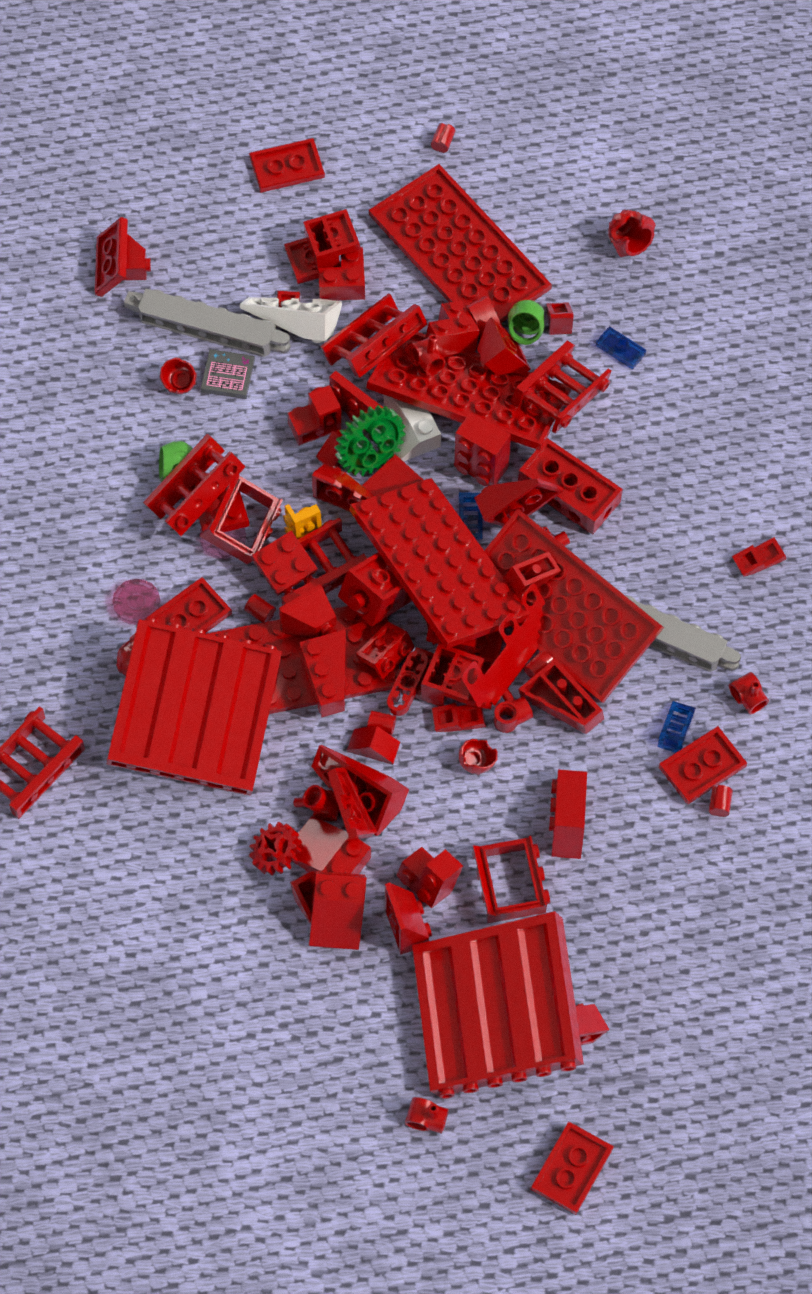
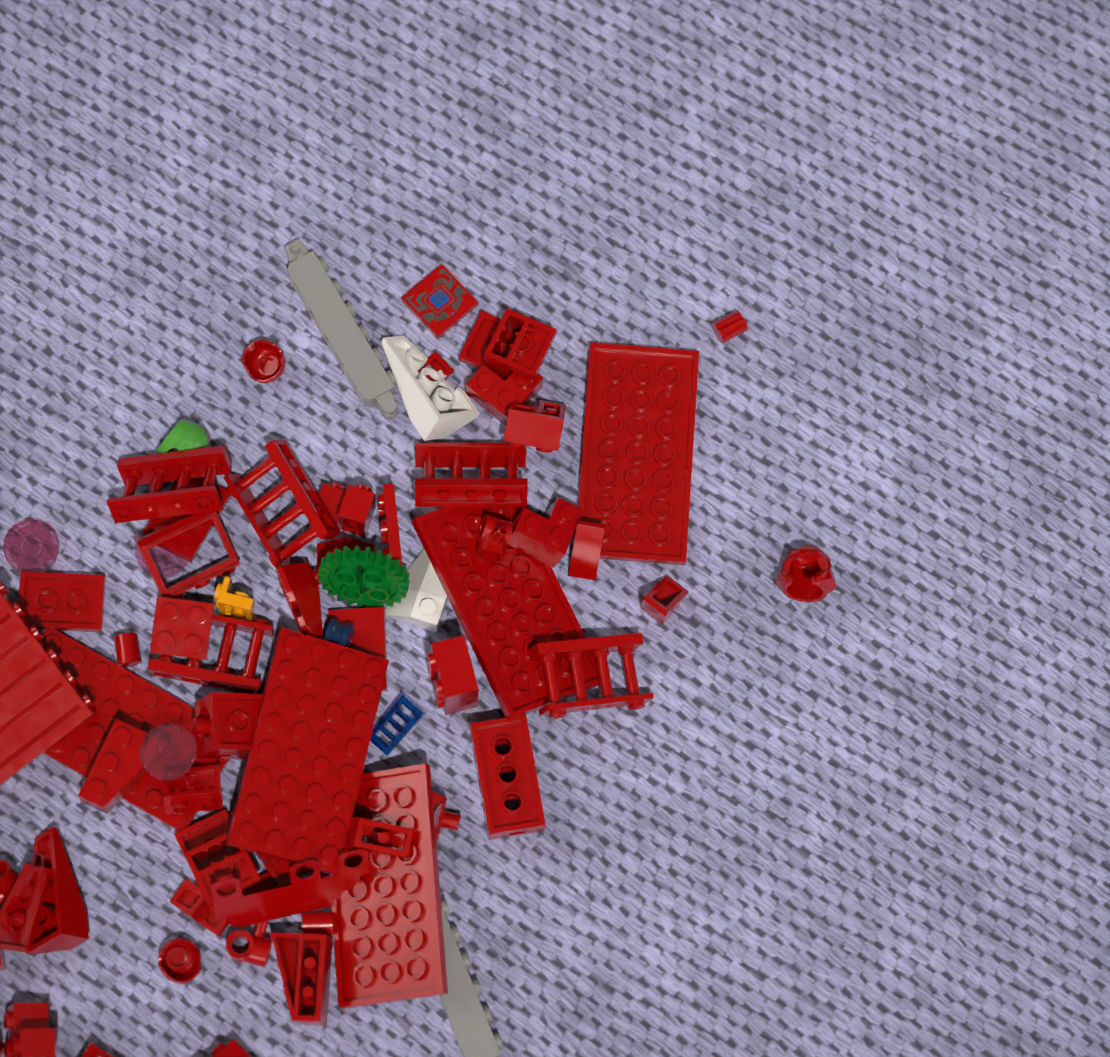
camera: 35 degrees right, 10 degrees up
(111, 257) = (312, 192): red tile -> none
(137, 261) = (331, 208): red slope -> none
(227, 374) = (314, 395): dark grey tile -> none
(251, 261) = (439, 301): none -> red tile
(287, 165) = (562, 231): red tile -> none
(291, 427) = (307, 503): none -> red fence
(308, 614) = (153, 698): red slope -> none
(352, 633) = (168, 751): none -> clear pink tile
(374, 744) = (104, 868): red slope -> none
(382, 720) = (129, 853): red piece -> none
(384, 486) = (340, 633): none -> dark blue wheel
(387, 274) = (535, 425): none -> red brick
(408, 693) = (166, 854): red beam -> none
(500, 351) = (572, 590): red slope -> none
(501, 500) = (431, 745): red slope -> none
(527, 319) = (630, 576): bright green helmet -> none
(621, 347) = (692, 679): clear blue plate -> none
(759, 558) = (616, 997): red slope -> none

